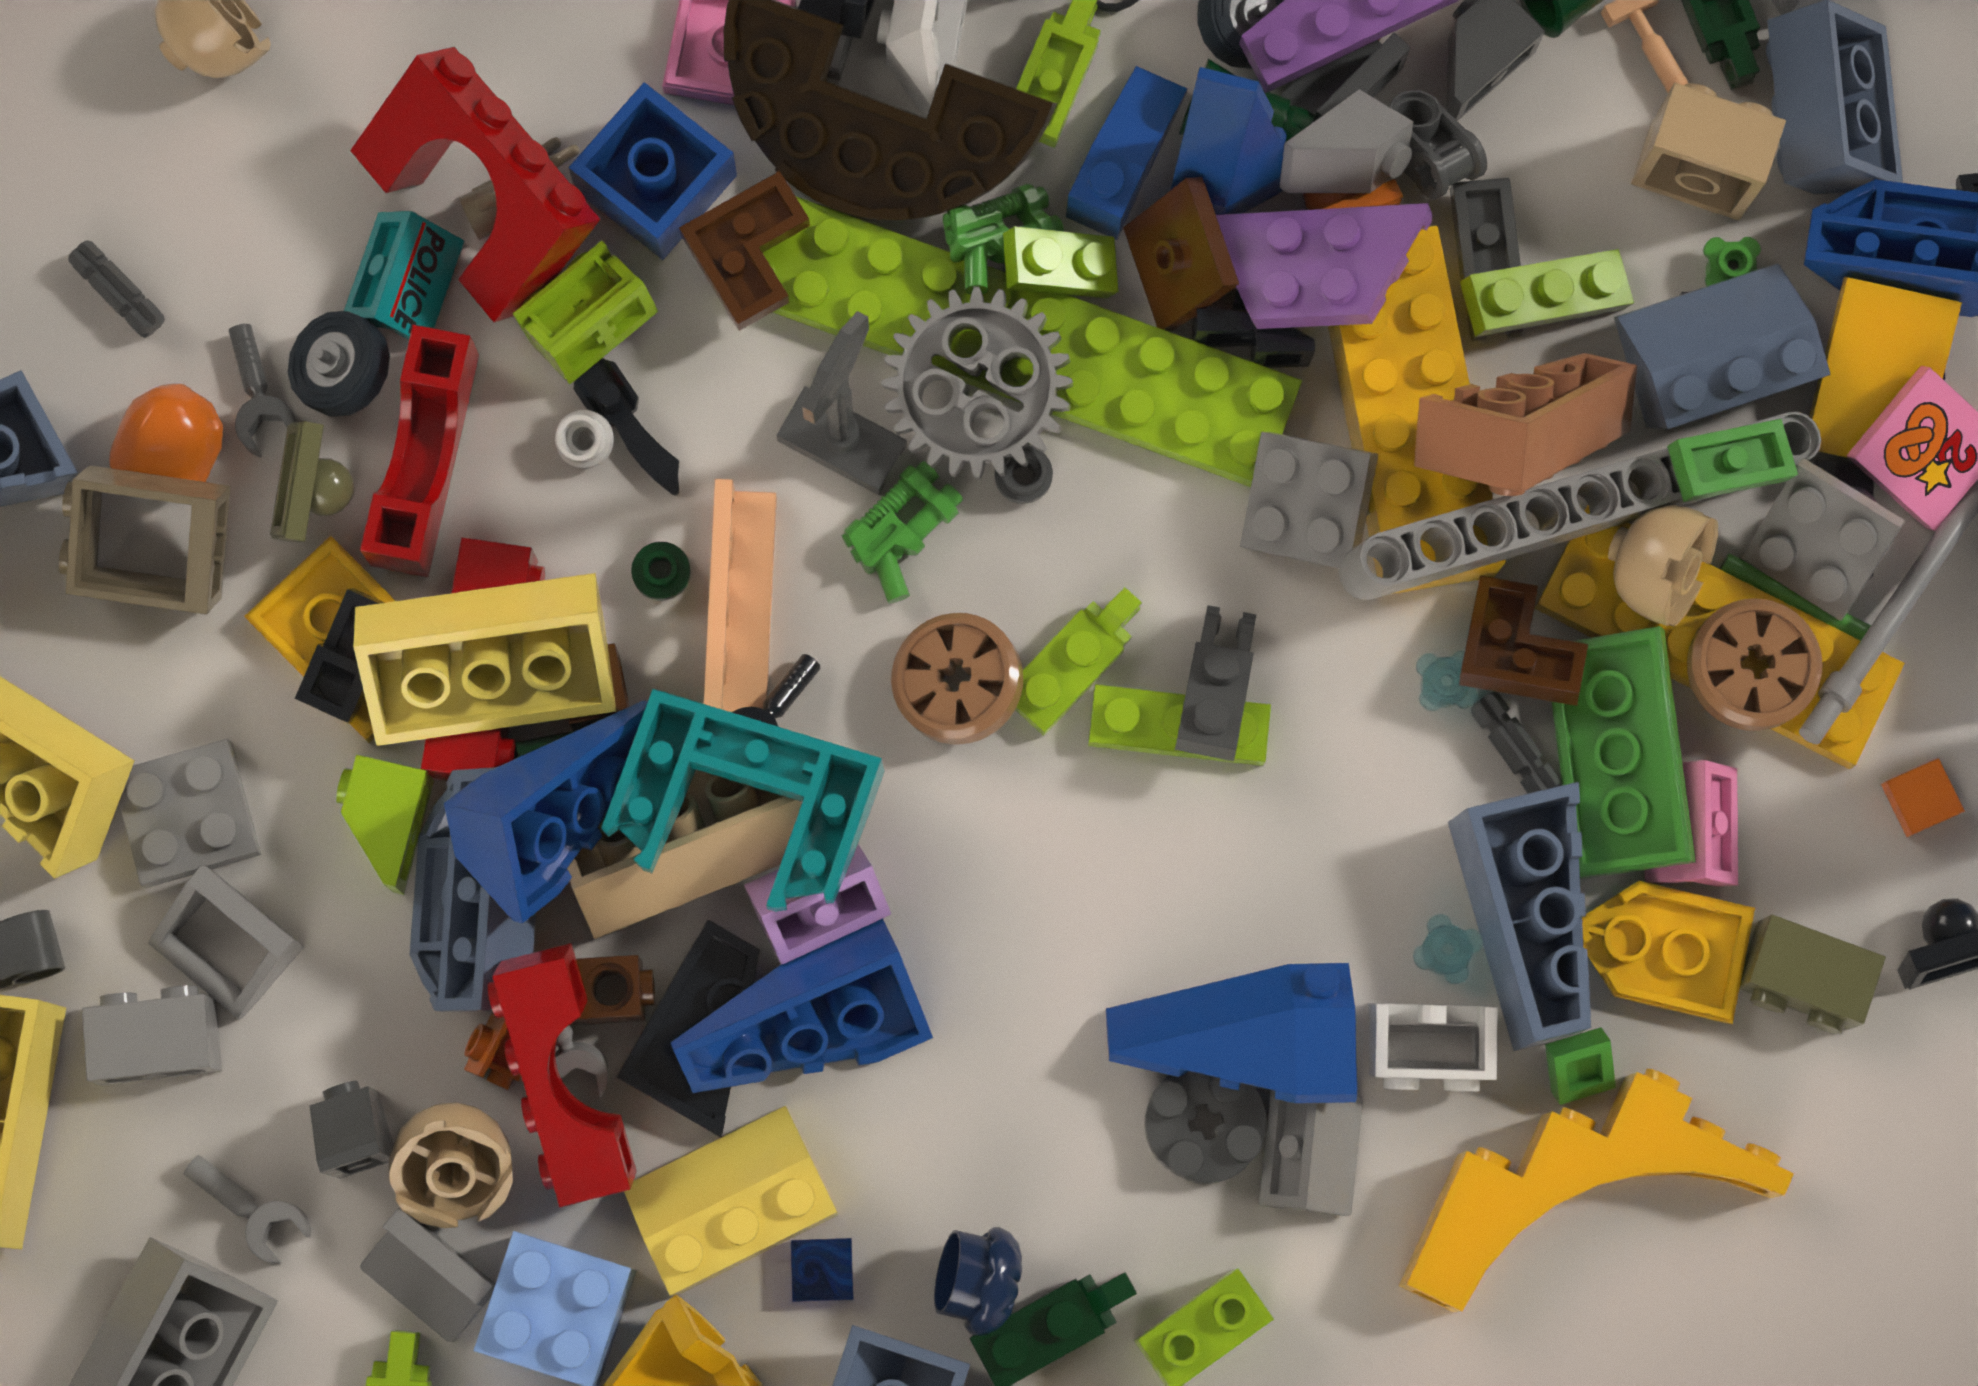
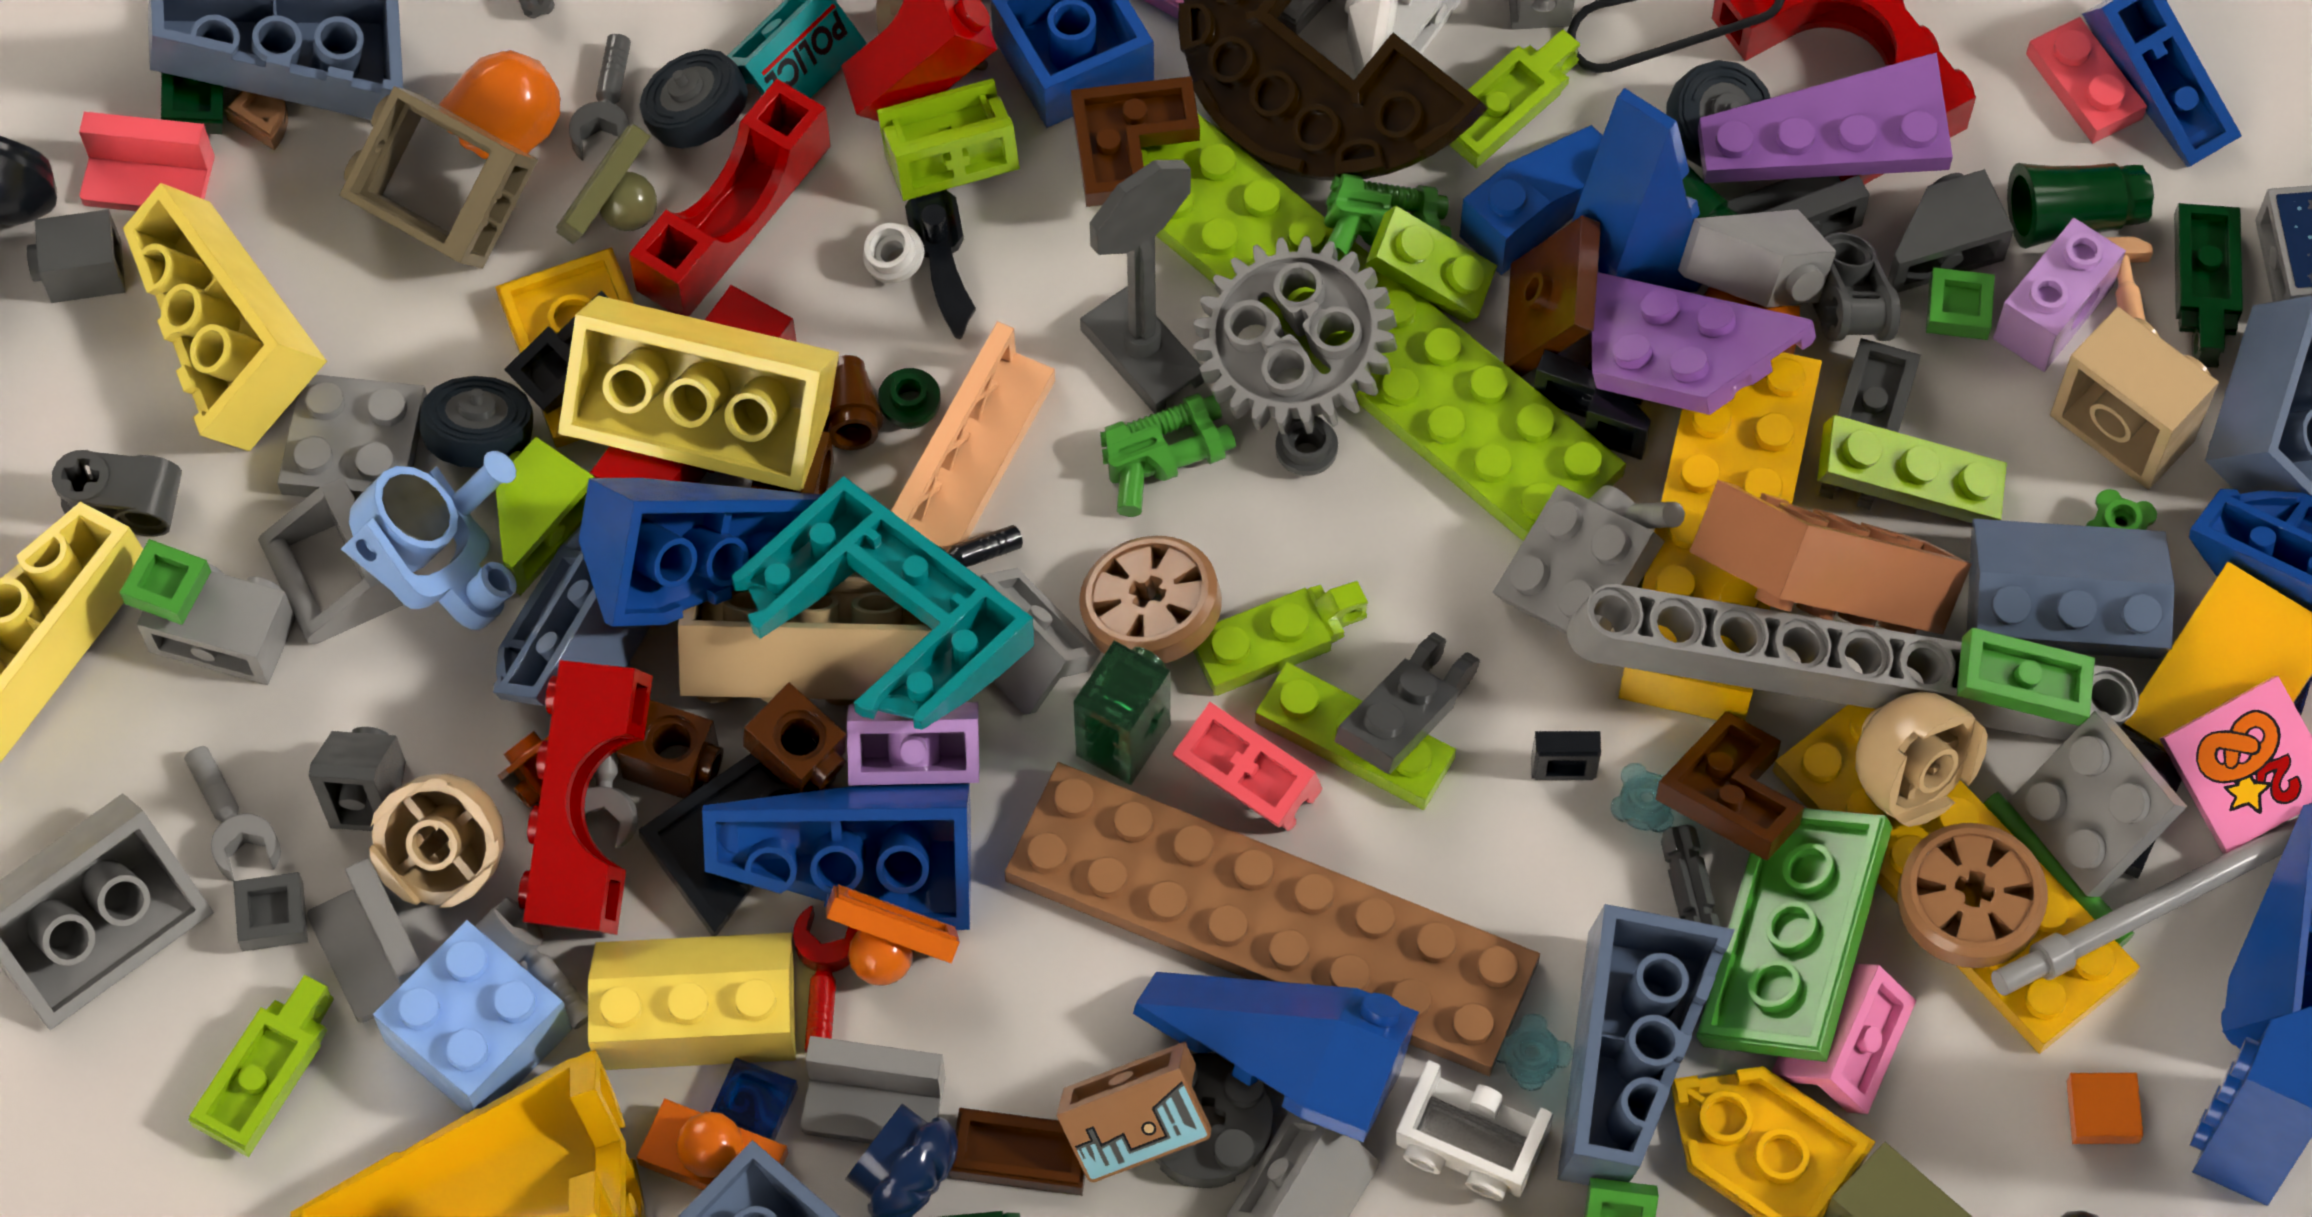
camera: 30 degrees right, 15 degrees down
(96, 1036) = (165, 582): none -> bright green plate
(287, 879) = (411, 518): none -> light blue piece
(292, 756) = (474, 417): none -> black wheel
(330, 1283) = (270, 911): none -> dark grey plate
(555, 1223) = (519, 940): none -> light grey piece
(622, 604) = (853, 409): none -> reddish brown cone
(693, 946) = (792, 714): none -> reddish brown brick
(803, 1330) = (697, 1144): none -> orange tile
(832, 1139) = (824, 960): none -> red piece
(859, 729) = (1057, 649): none -> light grey panel
(873, 1078) = (888, 935): none -> orange tile
(915, 1223) = (862, 1085): none -> light grey panel
(985, 795) = (1123, 711): none -> clear green brick
(1066, 1215) = (1015, 1152): none -> reddish brown tile
(1108, 800) = (1248, 767): none -> coral hinge
(1150, 1150) = (1133, 1113): none -> medium nougat panel
(1177, 917) = (1268, 912): none -> medium nougat plate
(1345, 435) = (1645, 514): none -> light grey piece
(1366, 673) = (1565, 755): none -> black tile
(1520, 113) = (1960, 303): none -> bright green plate
(1602, 73) = (2058, 294): none -> lavender brick

